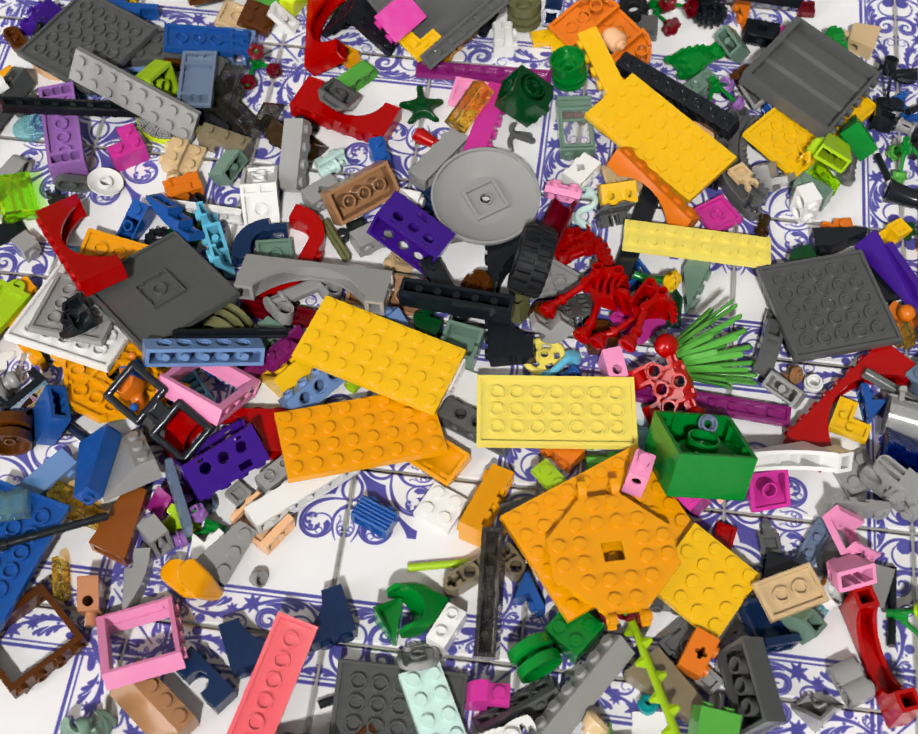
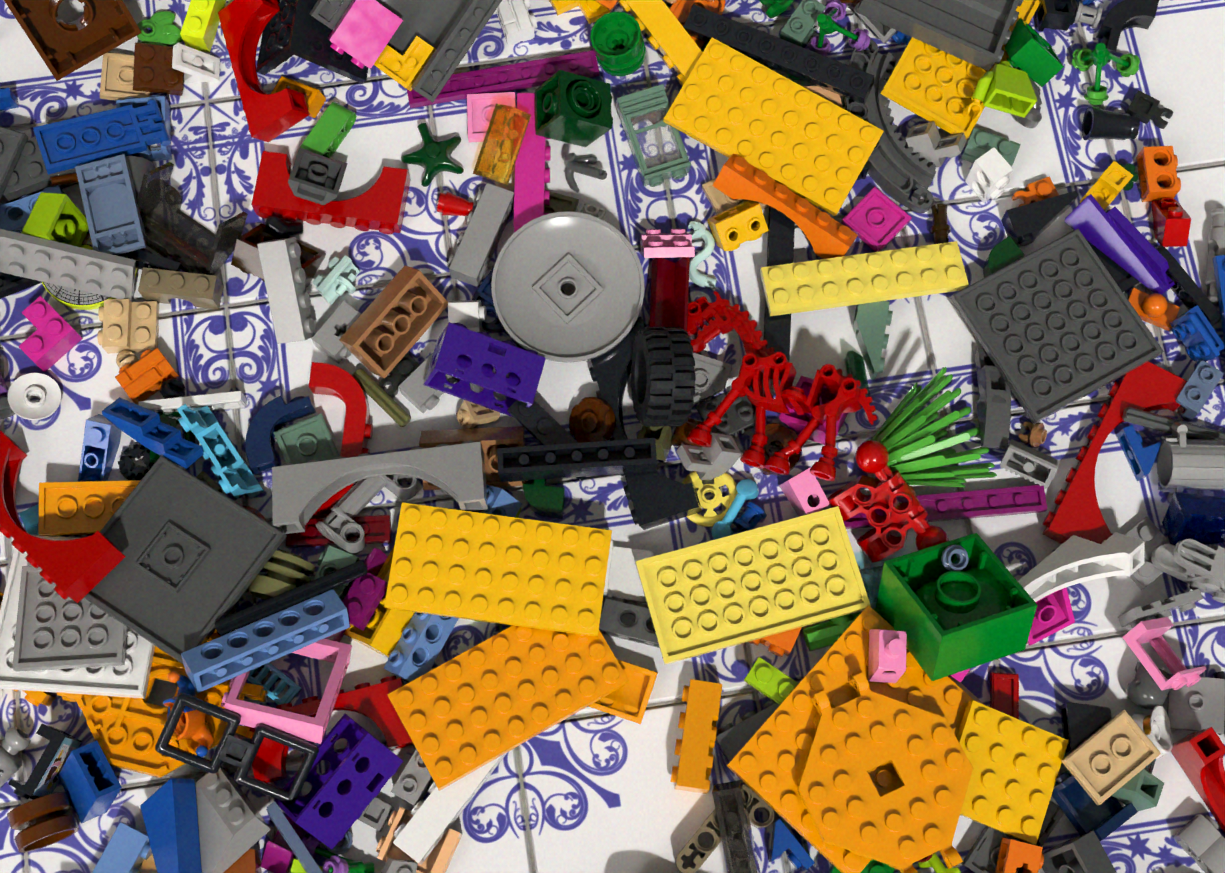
camera: 15 degrees left, 15 degrees up
(75, 431) = (135, 787): dark blue piece -> none
(76, 317) = (75, 635): black slope -> none
(228, 167) = (198, 327): sand green brick -> none
(256, 54) = (181, 143): dark red plant -> none
(260, 194) = (256, 357): white bracket -> none
(375, 516) = (561, 794): blue brick -> none
(378, 150) = (399, 249): blue brick -> none
(433, 565) = (661, 835): lime bar -> none
(441, 508) = (640, 754): white plate -> none
(466, 337) = (600, 509): sand green piece -> none
(582, 171) = (680, 190): white brick -> none
(619, 212) = (748, 255): dark grey hinge -> none
(634, 282) = (808, 340): blue bracket -> none
(670, 281) = (844, 336): plant -> none
(742, 174) = (897, 156): tan plate -> none
(768, 540) = (1062, 683): dark grey plate -> none
(813, 543) = (1114, 673): sand blue tile -> none
(815, 379) = (1062, 432): white plate -> none
(823, 174) = (1002, 125): clear neon green slope -> none
(845, 425) = (1113, 488): yellow plate -> none
(850, 572) = (1180, 716): bright pink torso -> none
(882, 166) = (1073, 89): black bar -> none
(908, 333) = (1163, 334): clear yellow head -> none

